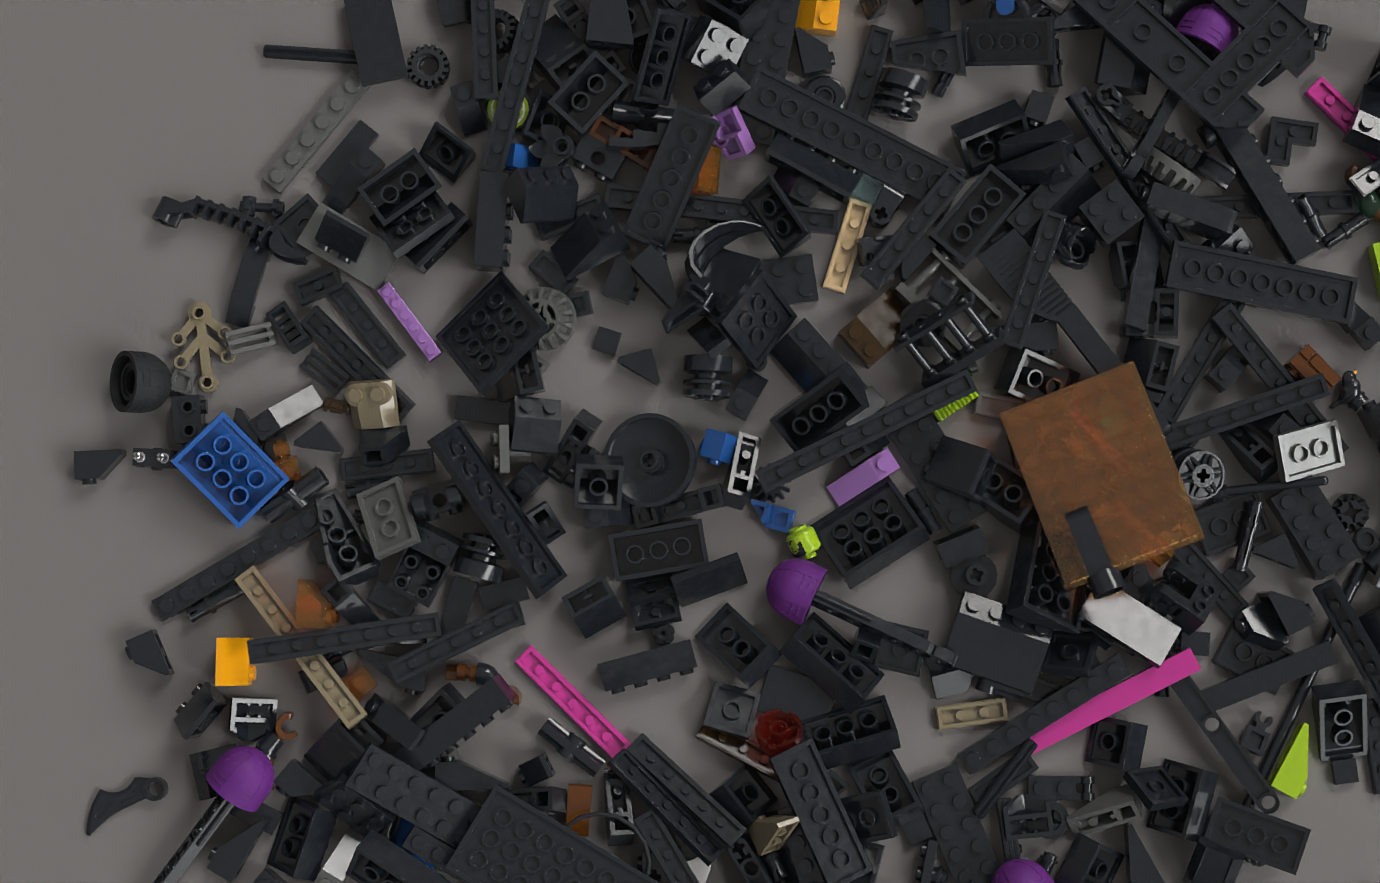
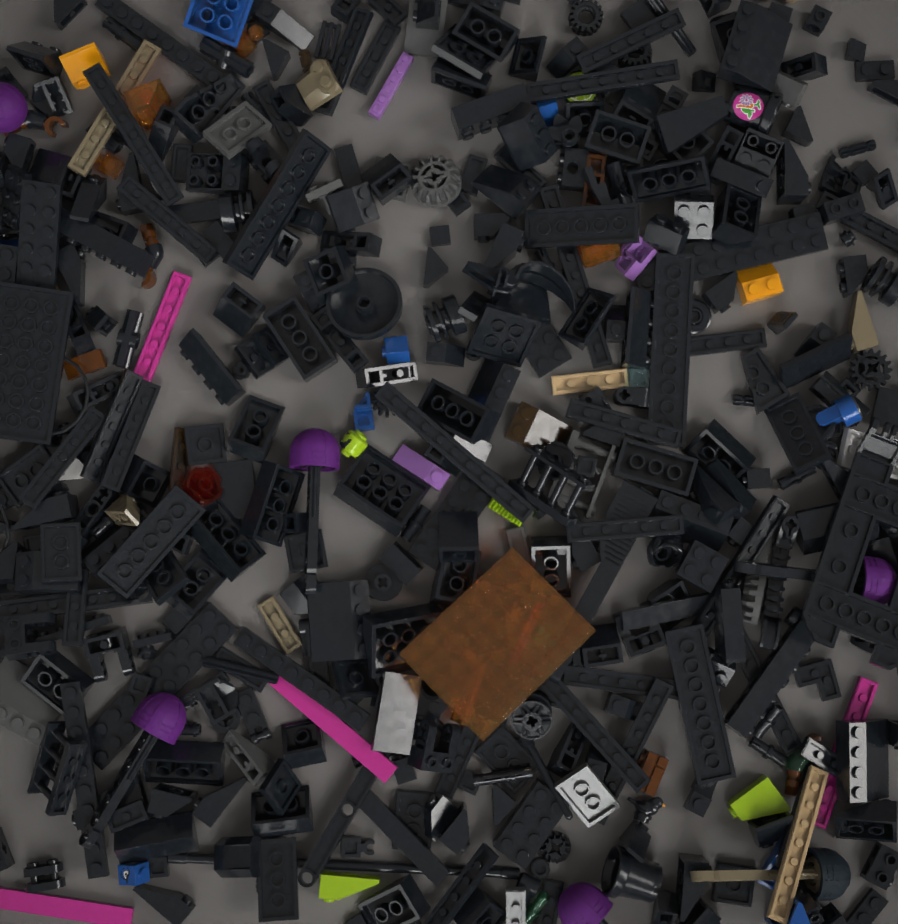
camera: 60 degrees right, 0 degrees up
(492, 332) = (407, 145): black plate -> none
(709, 579) = (294, 385): black tile -> none
(900, 91) = (723, 369): black wheel -> none
(1103, 578) = (418, 676): black beam -> none

